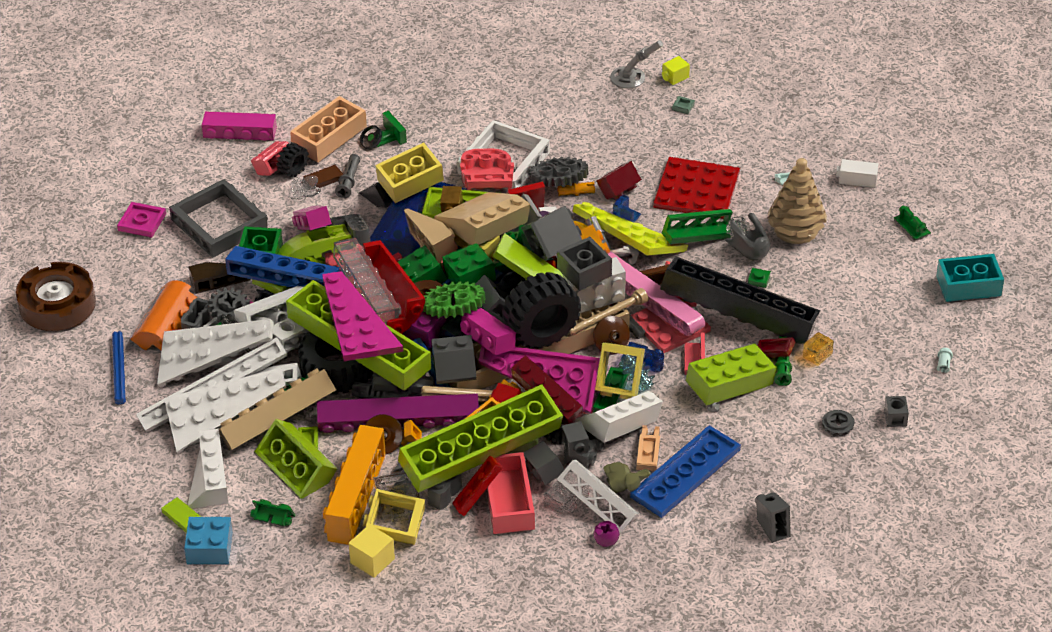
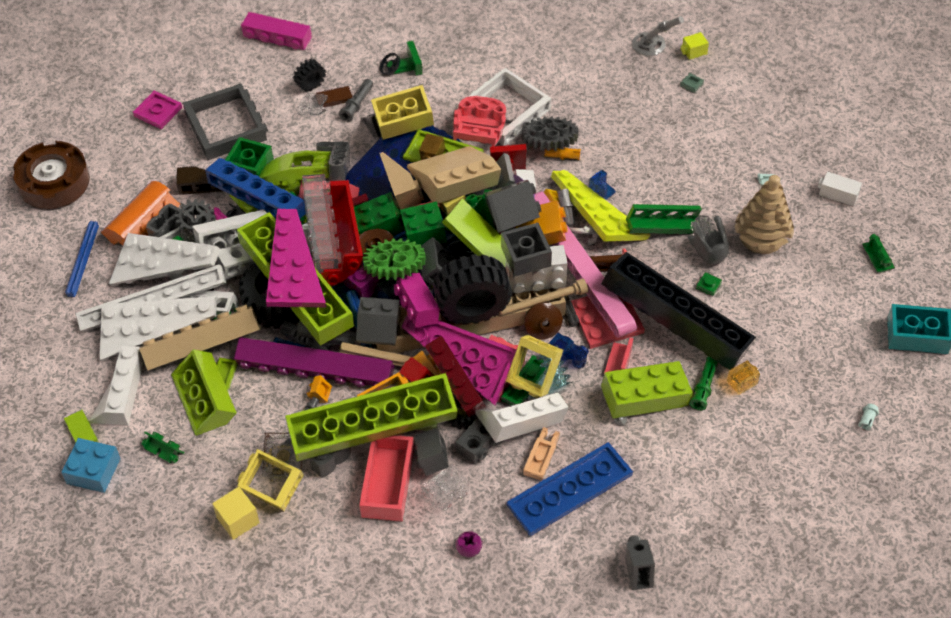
camera: 15 degrees right, 10 degrees up
(266, 161) = (285, 71): coral brick -> none
(311, 218) = (302, 139): dark pink brick -> none
(329, 128) = (353, 49): light nougat brick -> none
(354, 484) = (243, 436): light orange brick -> none
(391, 427) = (283, 383): reddish brown dish -> none
(477, 485) = (357, 464): red tile -> none
(575, 439) = (467, 433): dark grey brick -> none
(605, 492) = (478, 498): white fence -> none
(619, 180) = (604, 153): dark red brick -> none
(622, 478) = (502, 484): olive animal -> none
(696, 186) = (678, 173): red plate -> none
(777, 347) = (700, 368): dark red tile -> none
(845, 419) = (748, 462): dark grey gear -> none
(896, 411) = (800, 473): dark grey brick -> none

